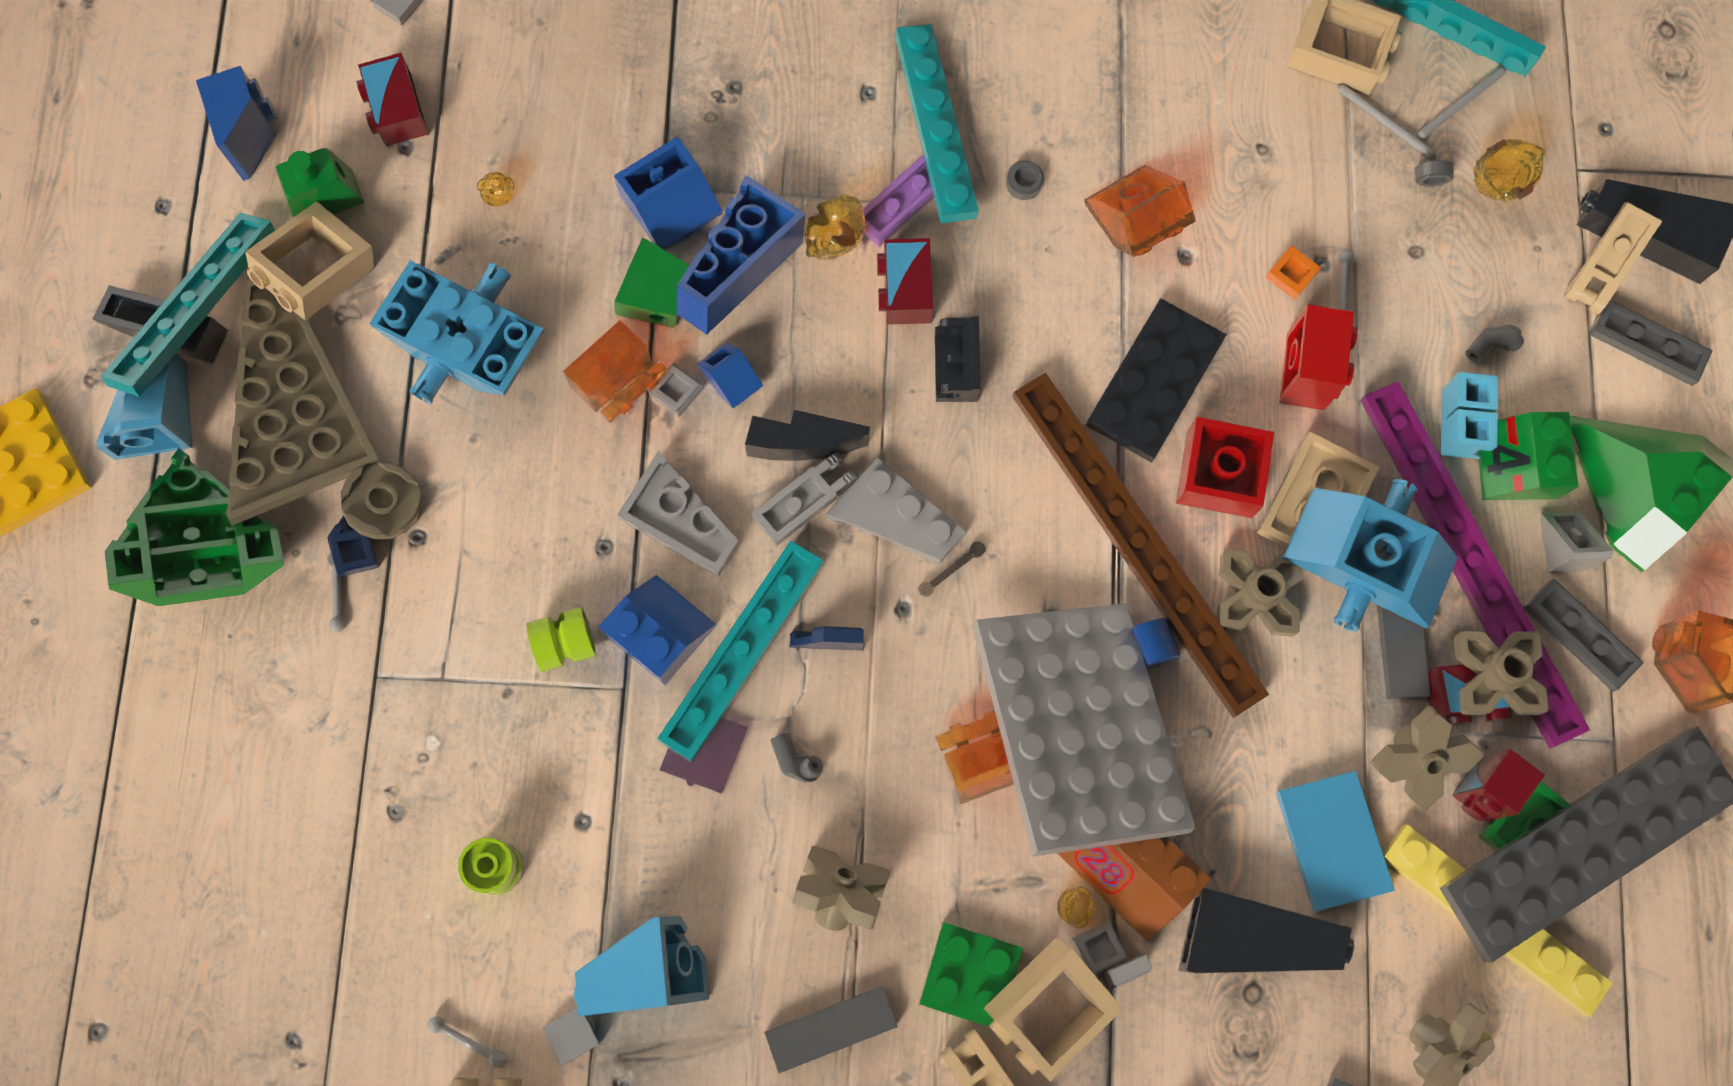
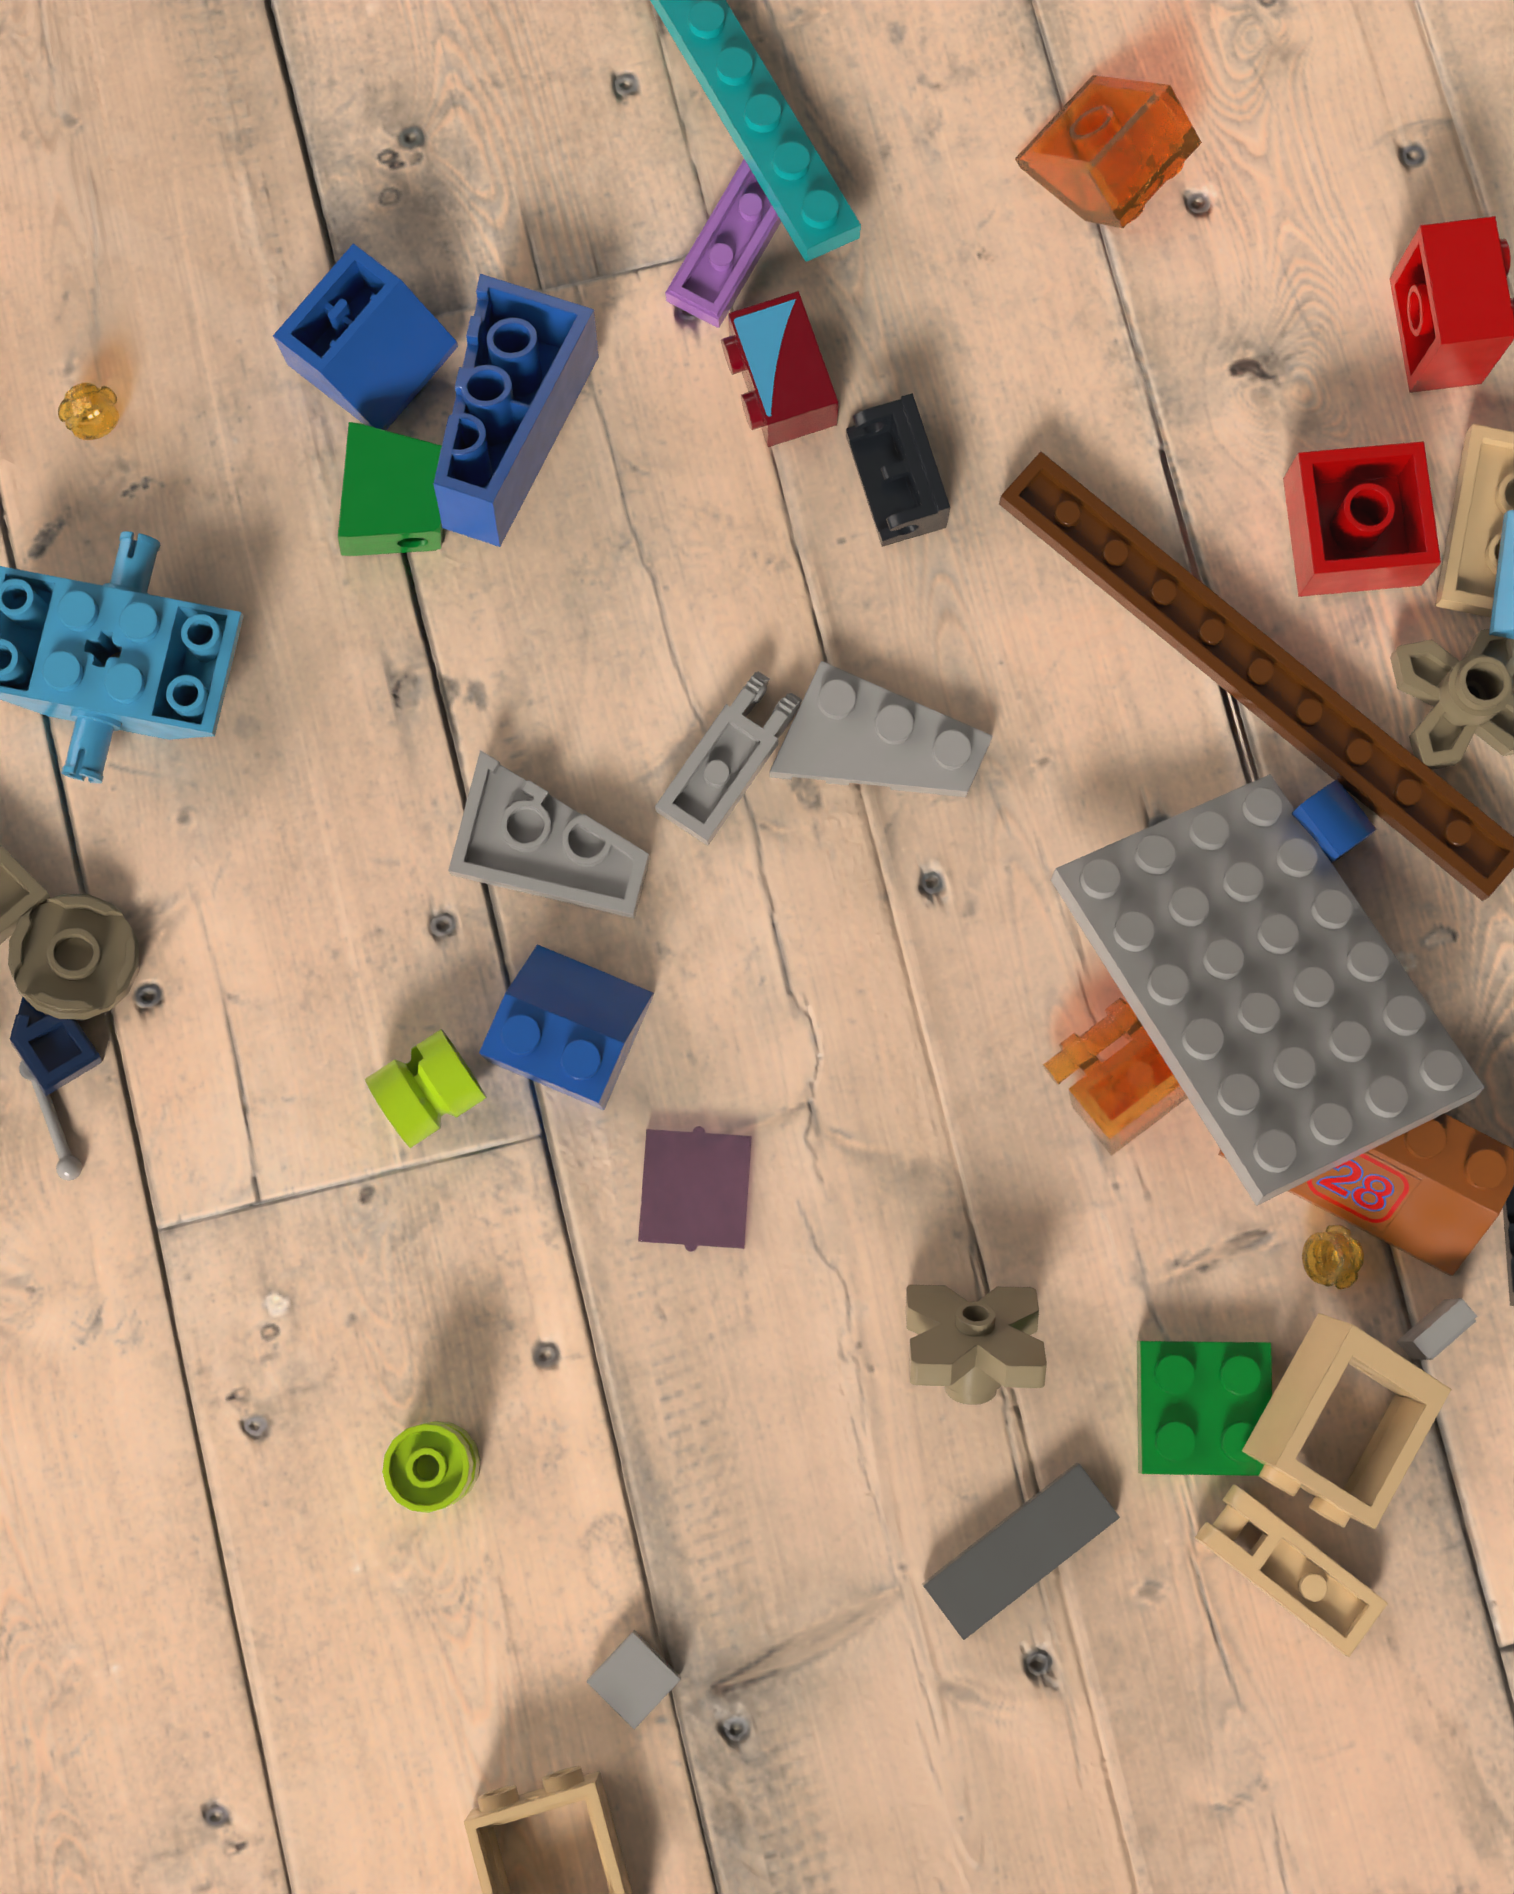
camera: 10 degrees left, 5 degrees up
(496, 1058) = (531, 1747): light grey hinge -> none
(609, 367) = (362, 641): clear orange brick -> none
(644, 971) = (715, 1555): dark azure slope -> none
(676, 390) = (474, 647): light grey tile -> none
(730, 374) = (552, 597): blue brick -> none
(740, 651) = (706, 1023): teal plate -> none
(795, 764) = (838, 1170): dark grey arm -> none
(805, 438) = (702, 664): black slope -> none
(829, 638) = (834, 963): dark blue tile -> none
(835, 229) = (645, 317): clear yellow hair -> none
(976, 550) = (1015, 760): clear smoke hinge -> none
(1024, 180) = (913, 154): dark grey tile -> none
(1099, 947) = (1385, 1306): light grey tile -> none
(1155, 380) = (1212, 412): black plate -> none
(1293, 272) = (1374, 180): orange plate -> none
(1345, 257) = (1446, 134): light grey hinge -> none

